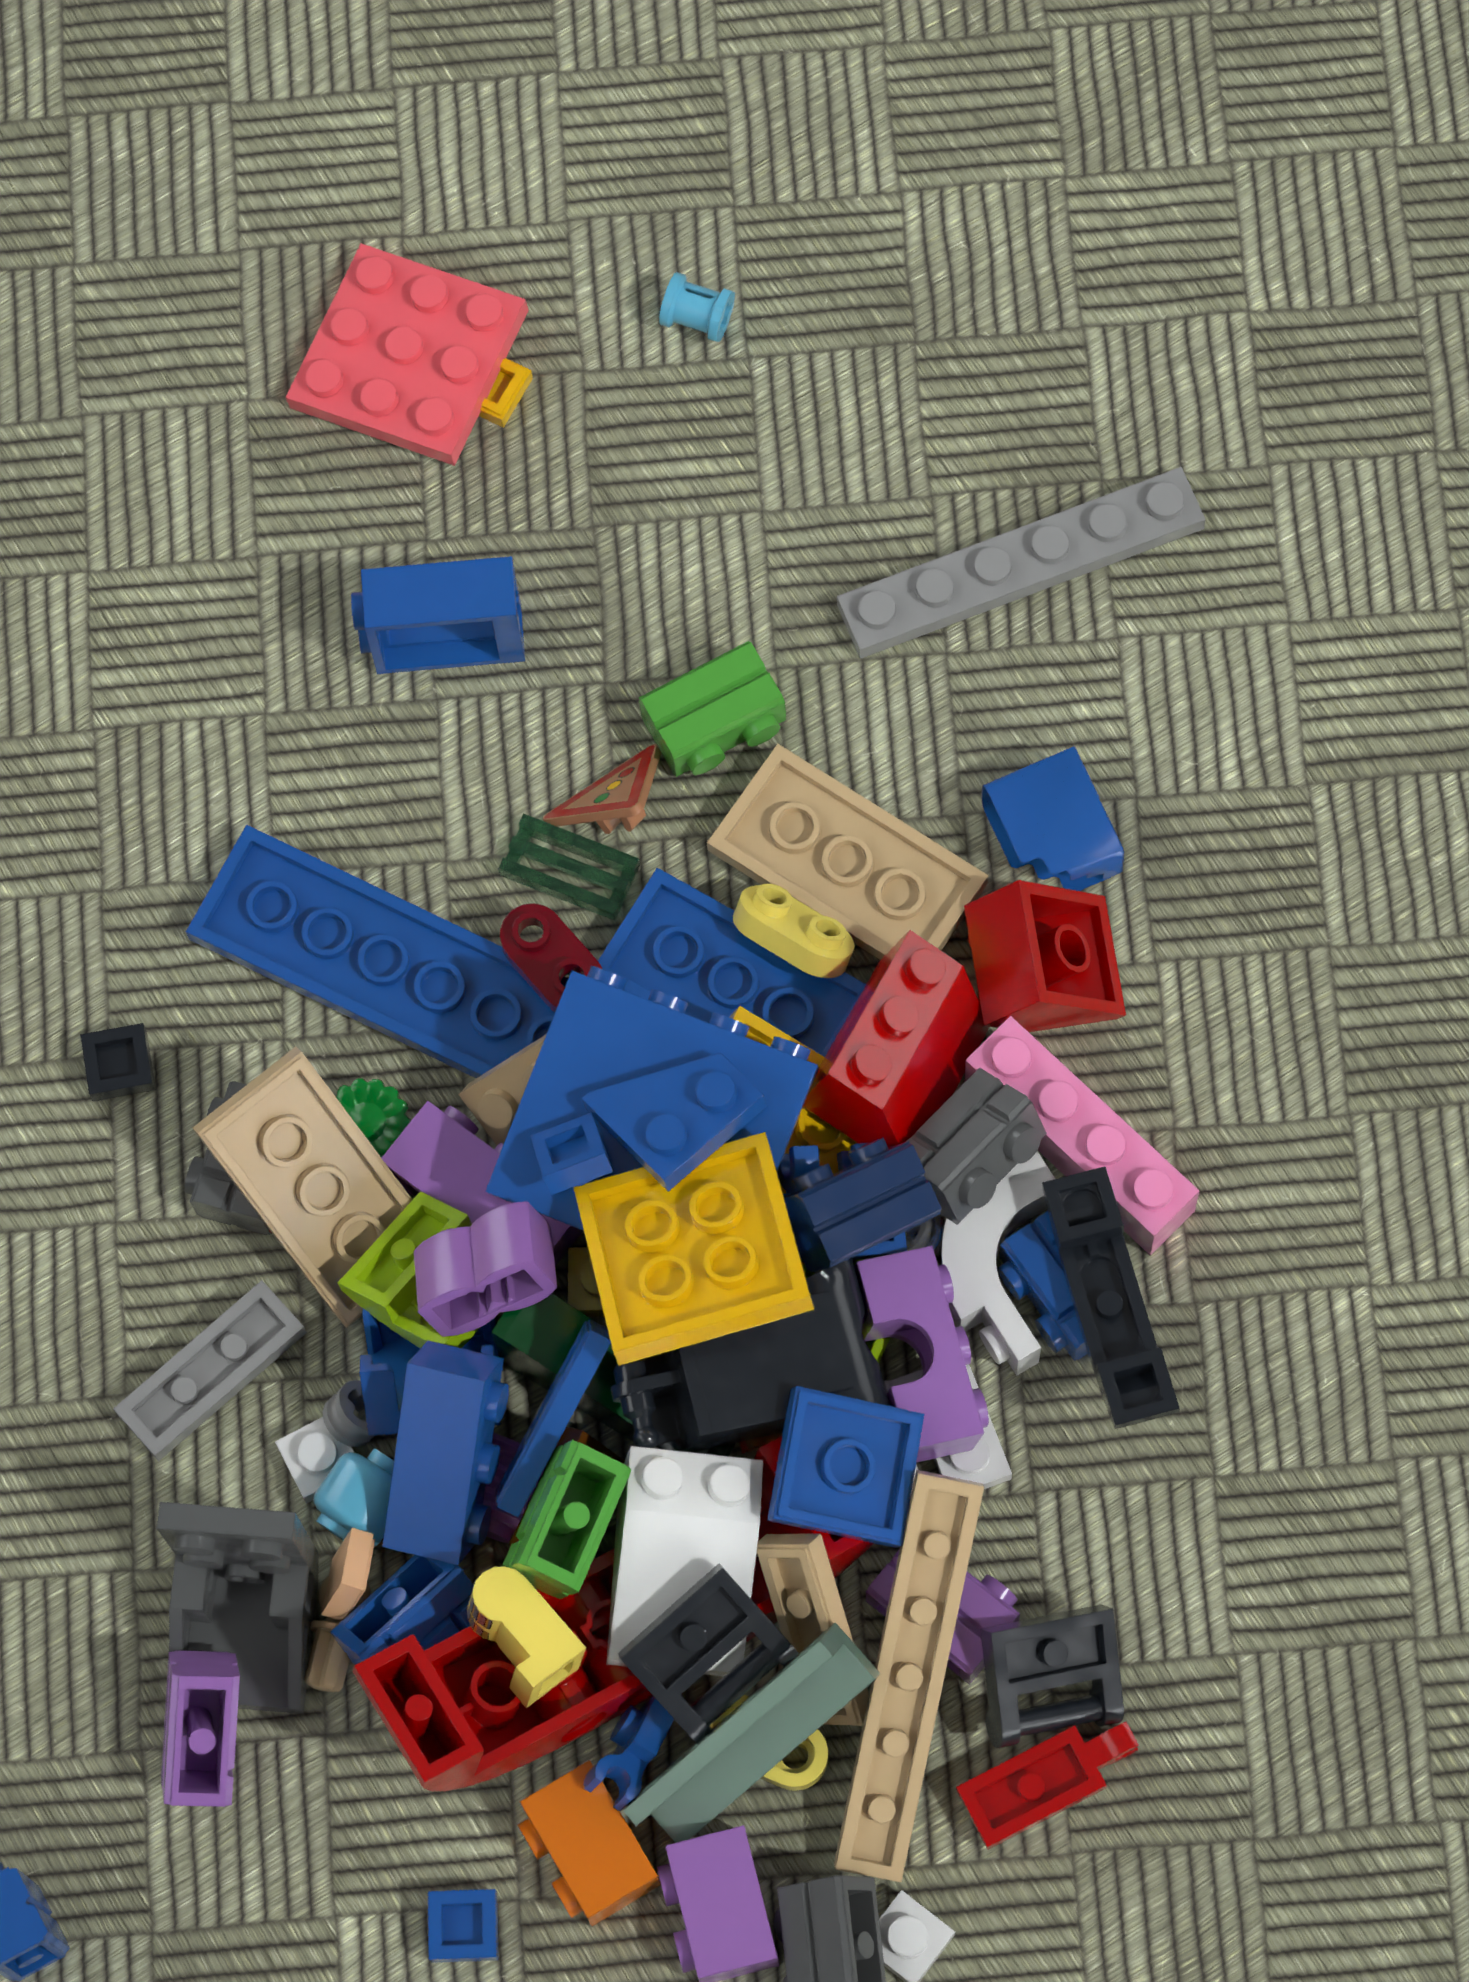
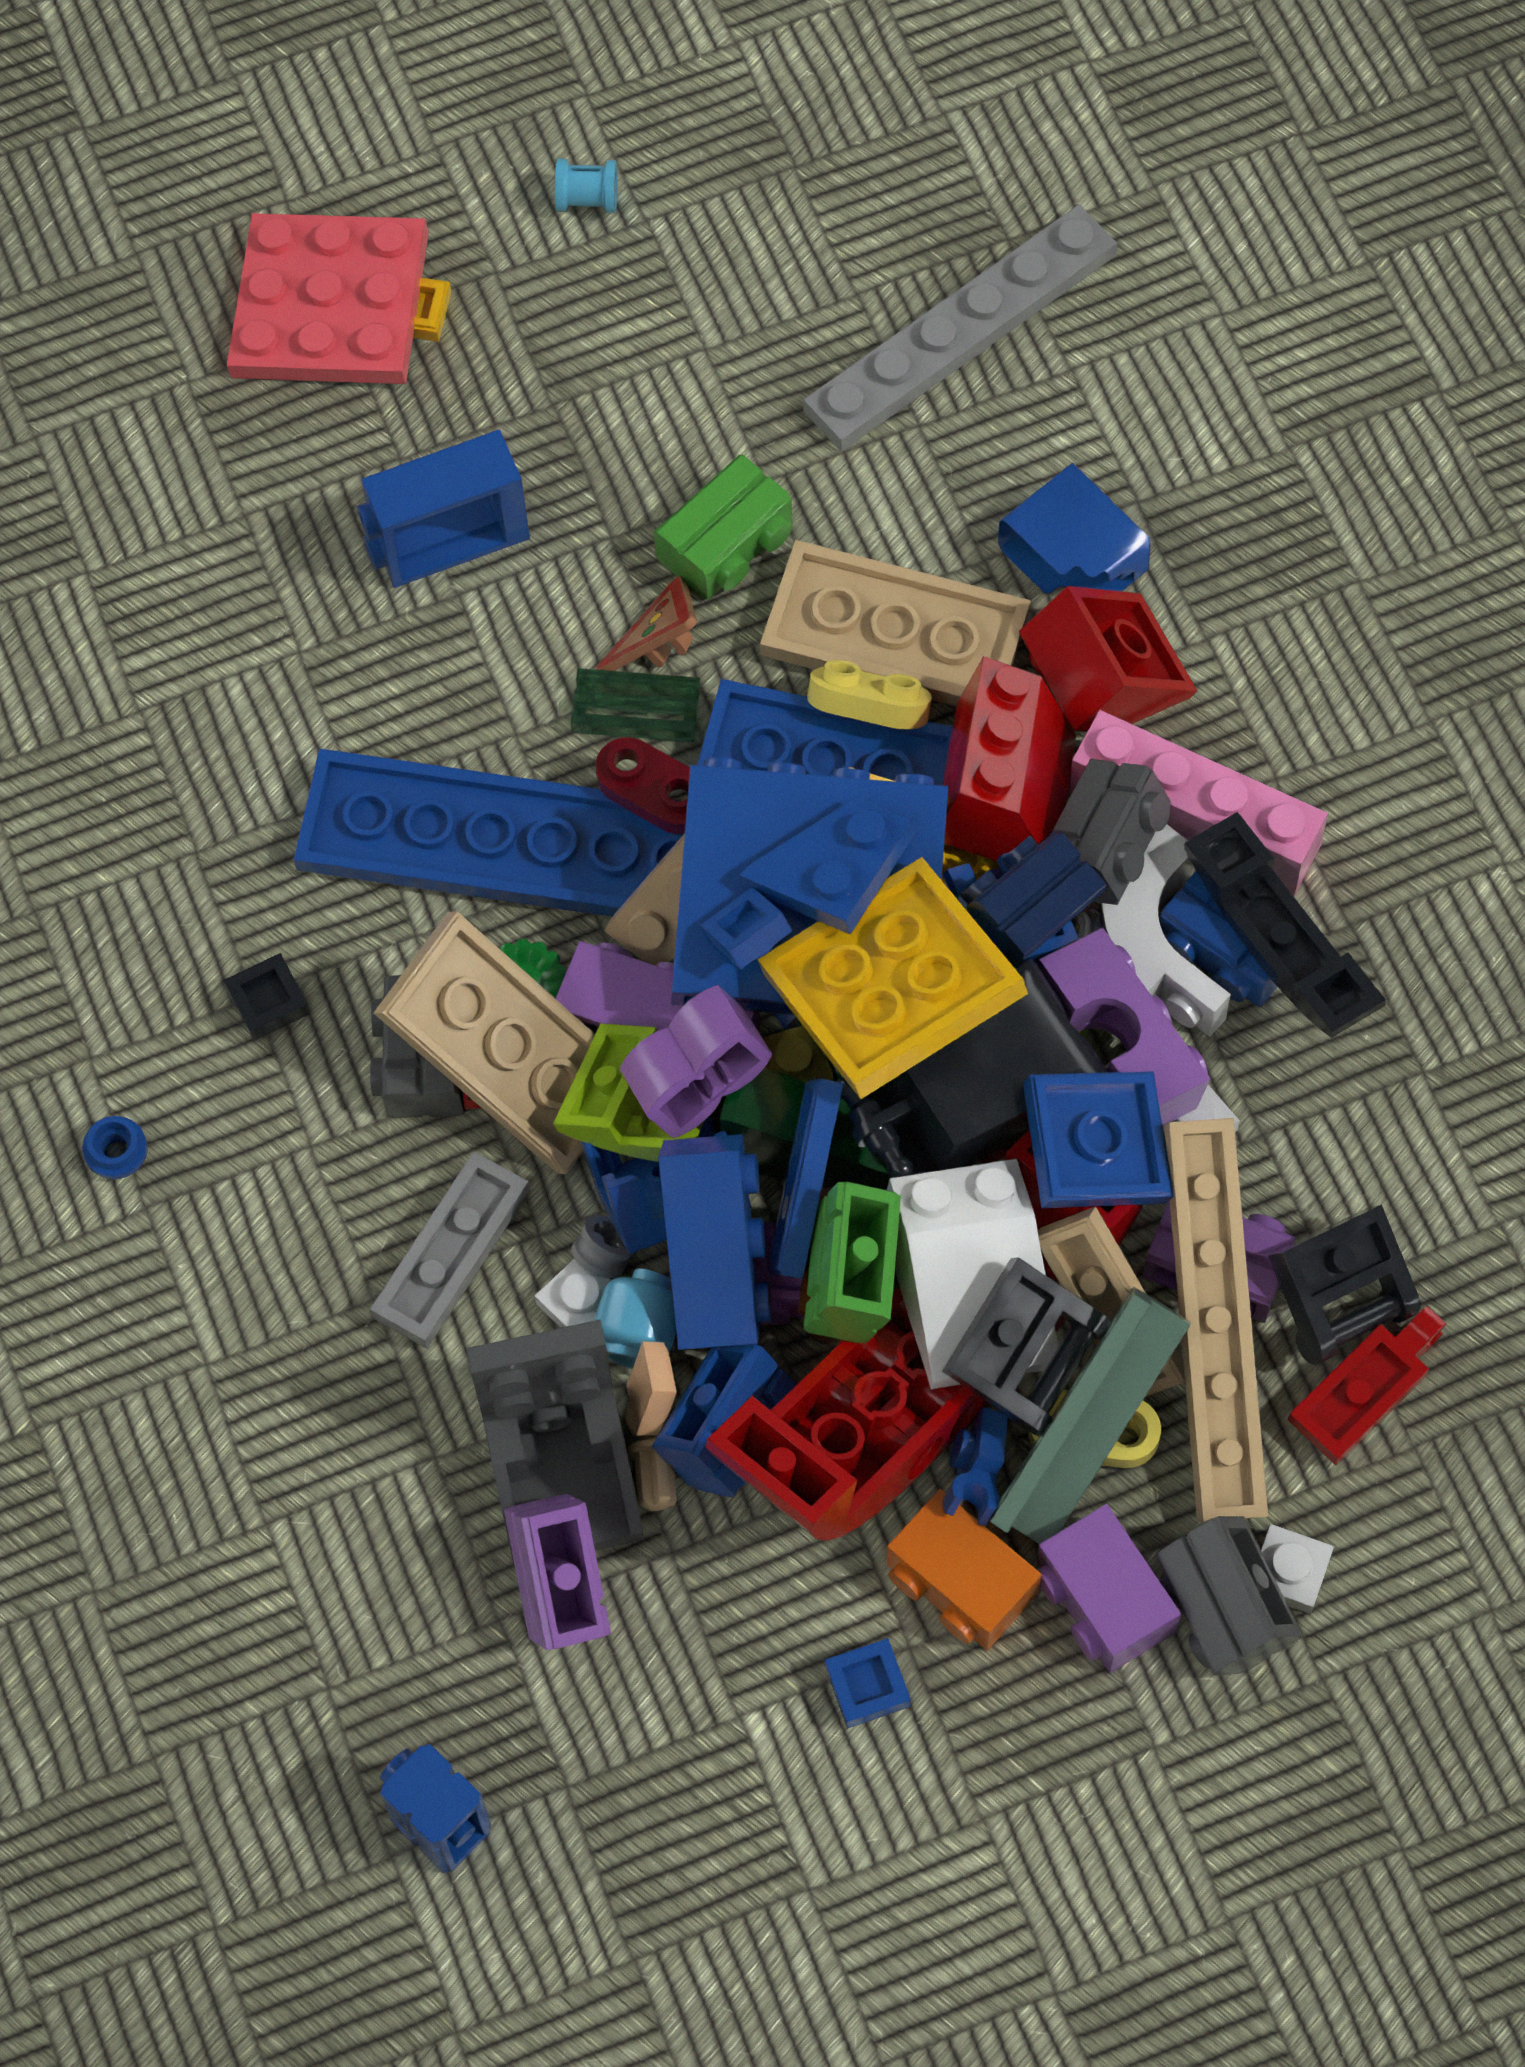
camera: 20 degrees left, 5 degrees down
(527, 1630) = (847, 1374): light yellow leg -> none

